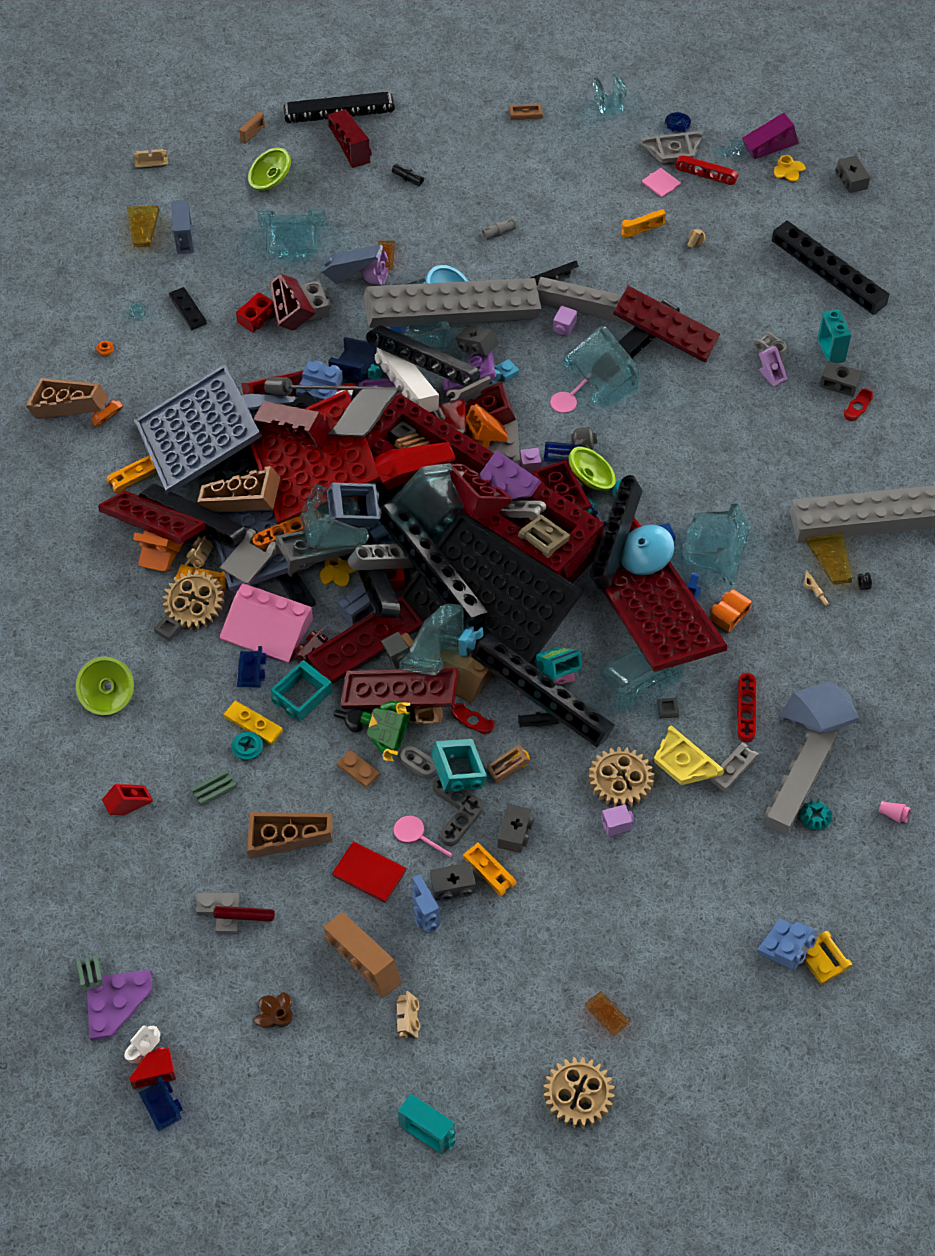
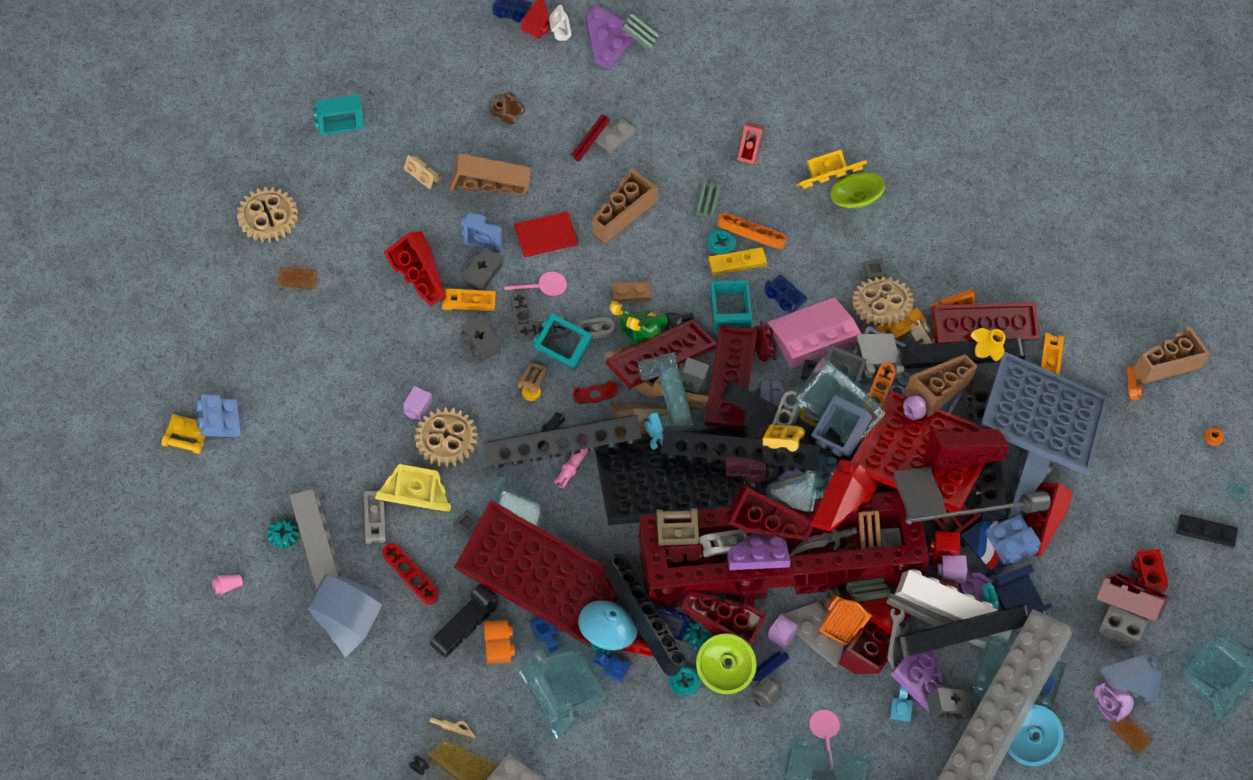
camera: 130 degrees right, 5 degrees up
(99, 725) = (828, 165): none -> yellow bracket
(170, 498) = (987, 345): none -> yellow plate
(218, 730) = (751, 230): none -> orange beam
(284, 484) = (914, 407): none -> lavender piece
(404, 535) = (777, 436): none -> yellow plate
(444, 546) = (751, 469): none -> clear pink slope
(497, 936) = (416, 262): none -> red wedge
(553, 665) = (577, 473): teal torso -> none
(748, 639) = (465, 621): none -> black beam

